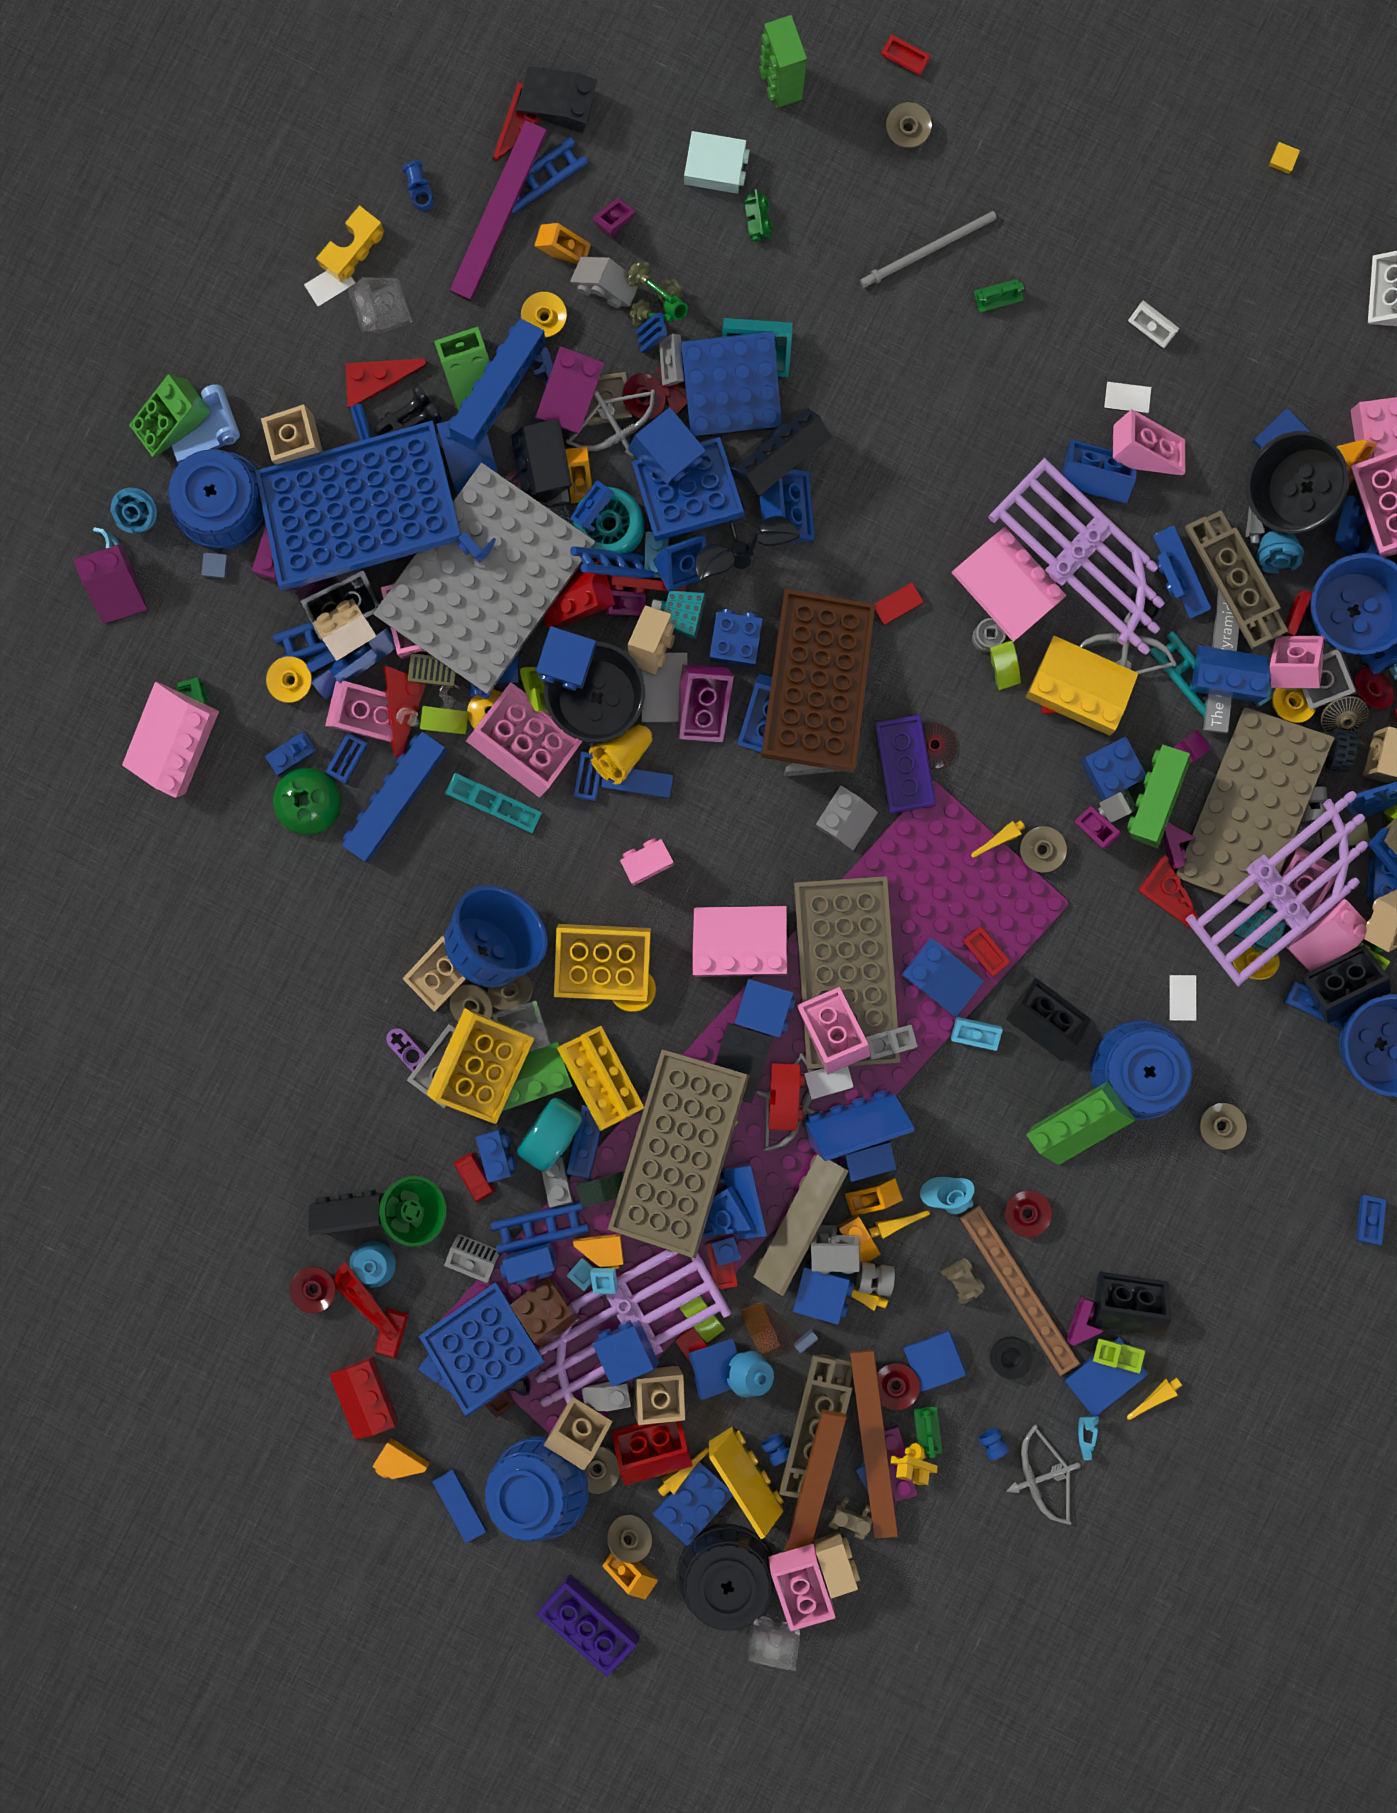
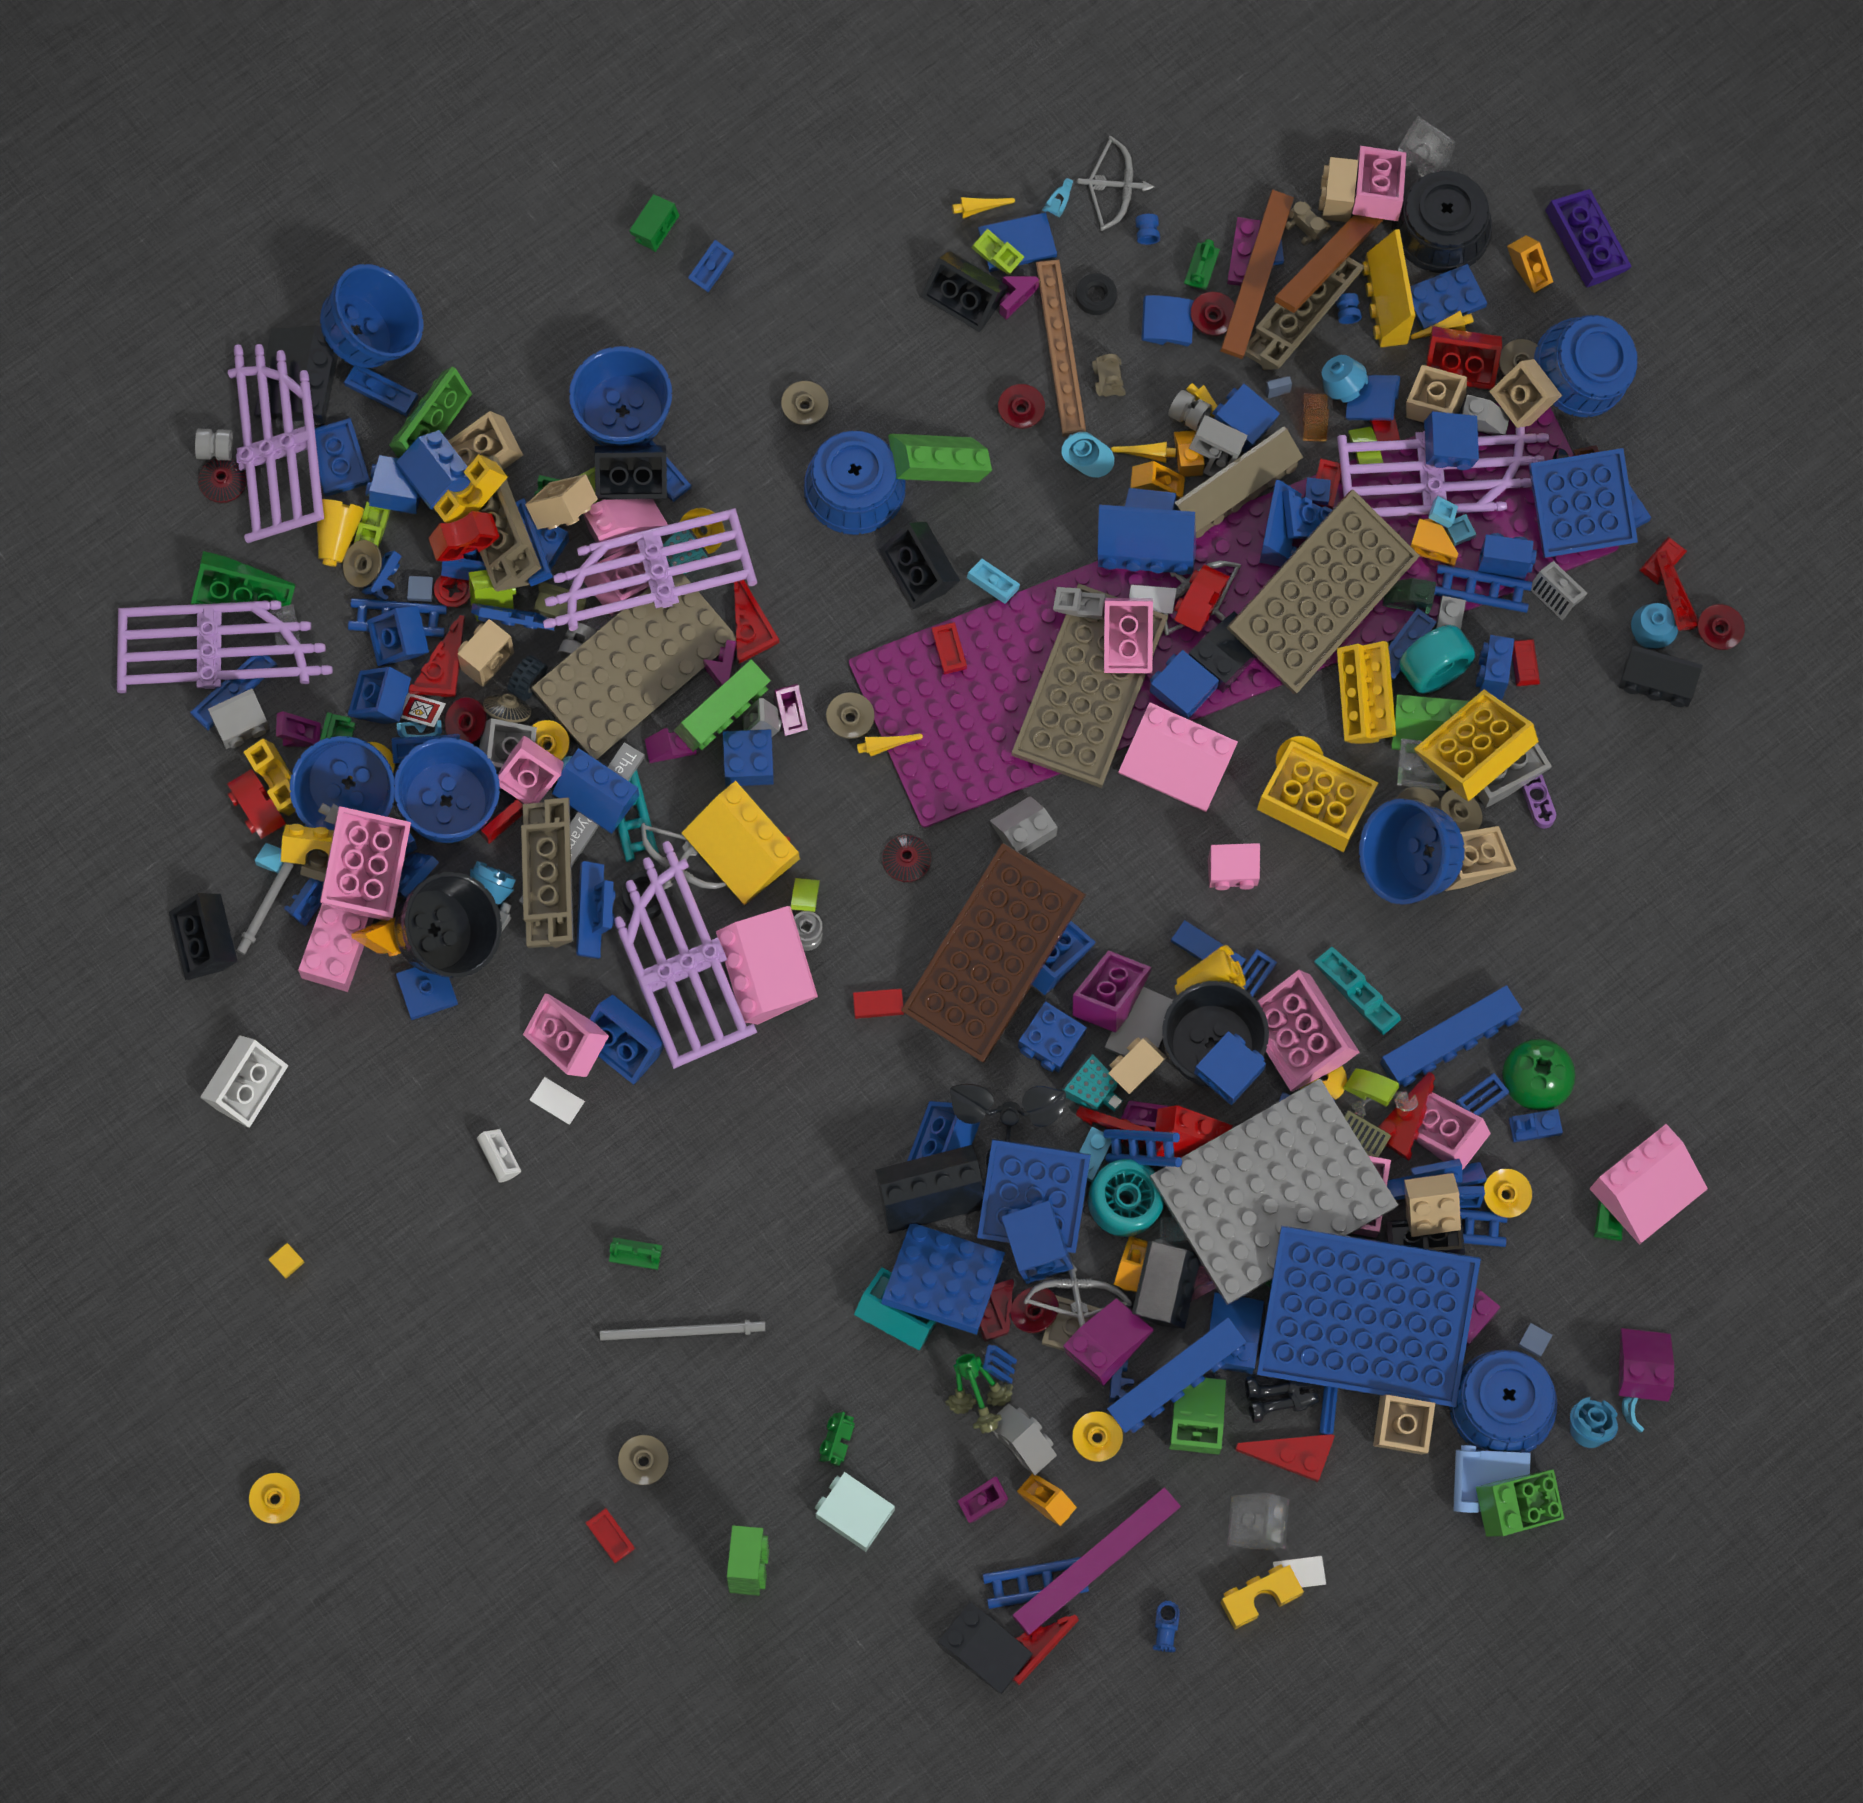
camera: 160 degrees left, 15 degrees down
(364, 1398) = (1712, 513): red slope -> none
(399, 1461) = (1702, 445): light orange slope -> none
(423, 1208) = (1596, 649): green piece -> none
(459, 1505) = (1663, 387): blue tile -> none
(468, 546) = (1272, 1210): blue plate -> none
(534, 688) = (1268, 1081): lime slope -> none
(545, 1312) = (1510, 508): reddish brown brick -> none
(591, 505) = (1138, 1208): blue plate -> none
(638, 1534) = (1508, 291): dark tan dish -> none
(671, 360) = (993, 1324): light grey plate -> none
(678, 562) = (1072, 1130): blue slope -> none
(905, 764) = (943, 850): dark purple tile -> none
(914, 1462) = (1224, 248): yellow hips -> none
(942, 977) = (1003, 643): blue slope -> none
(1183, 997) = (783, 531): white sticker -> none

